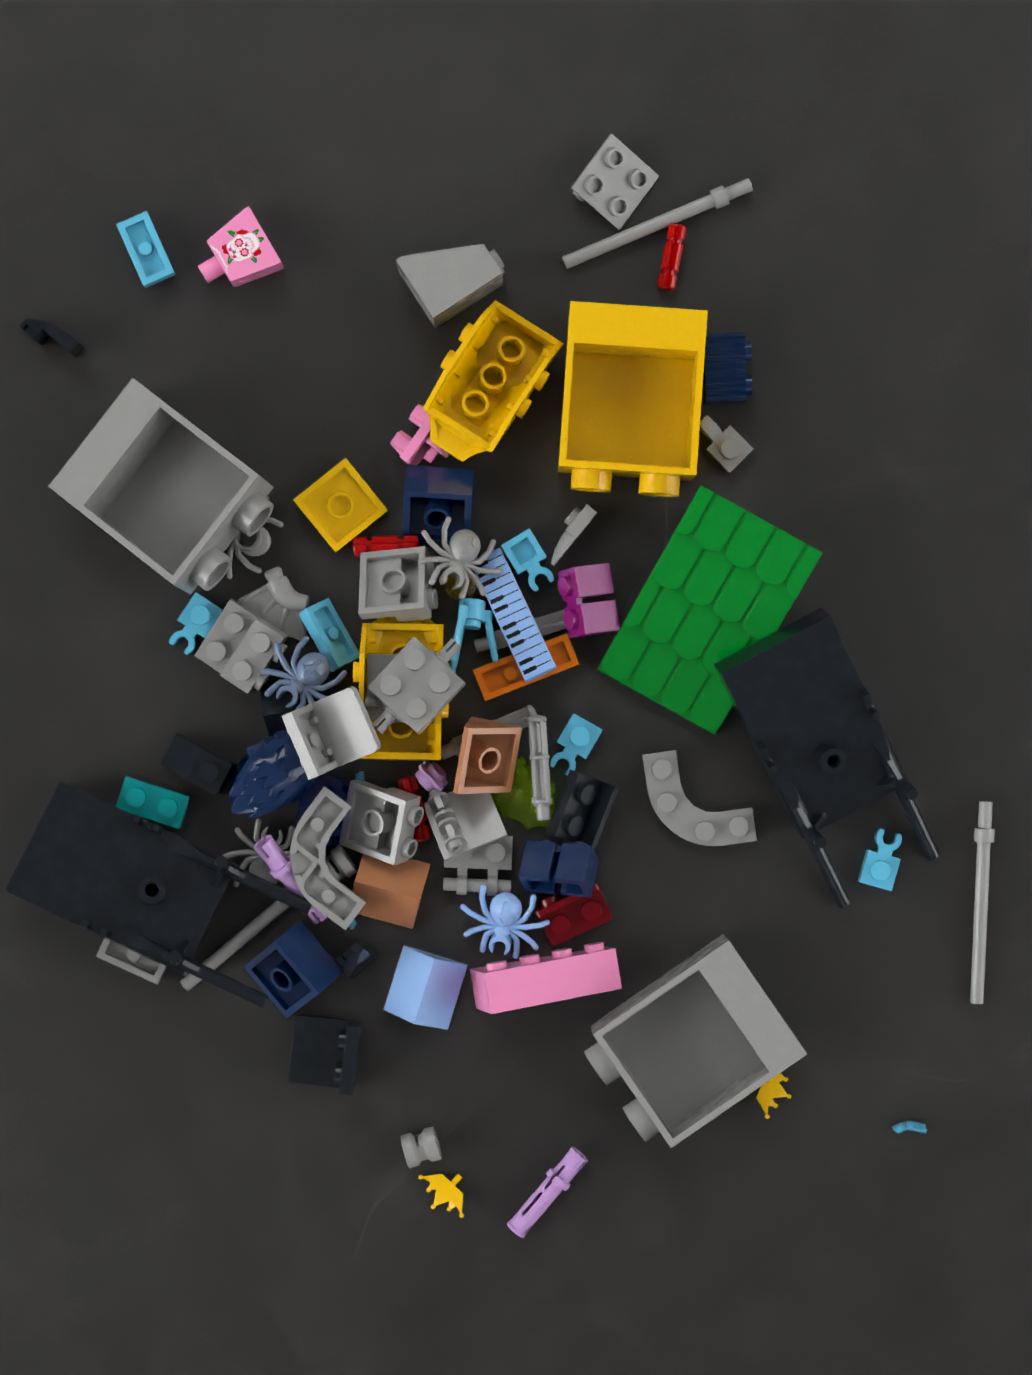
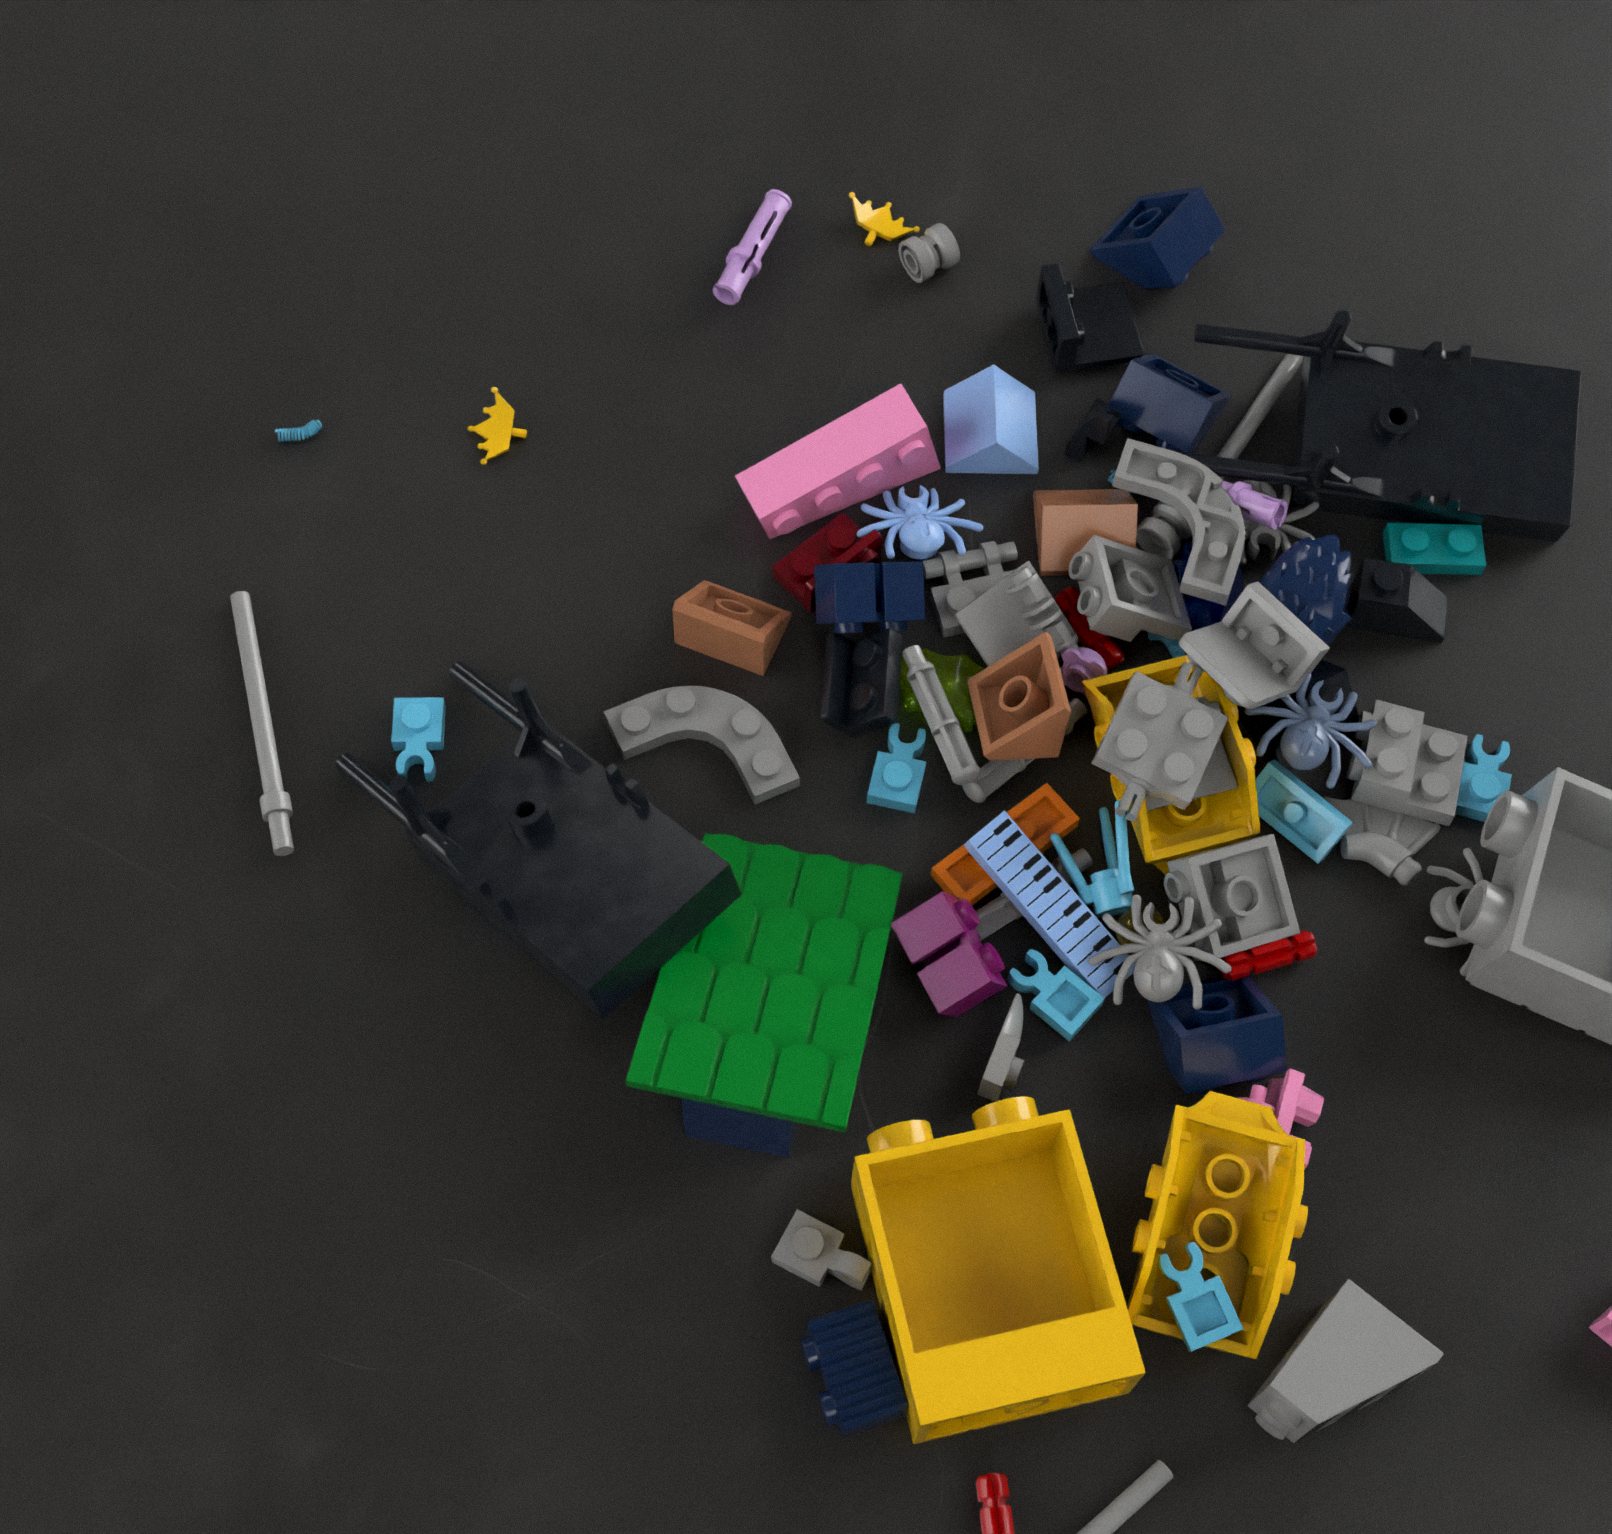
camera: 160 degrees right, 25 degrees down
(248, 1111) = (1161, 237): none -> dark blue slope
(340, 504) = (1356, 993): yellow plate -> none
(520, 334) = (1200, 1306): none -> medium azure plate
(652, 884) = (729, 626): none -> nougat slope
(693, 1043) = (615, 440): light grey brick -> none

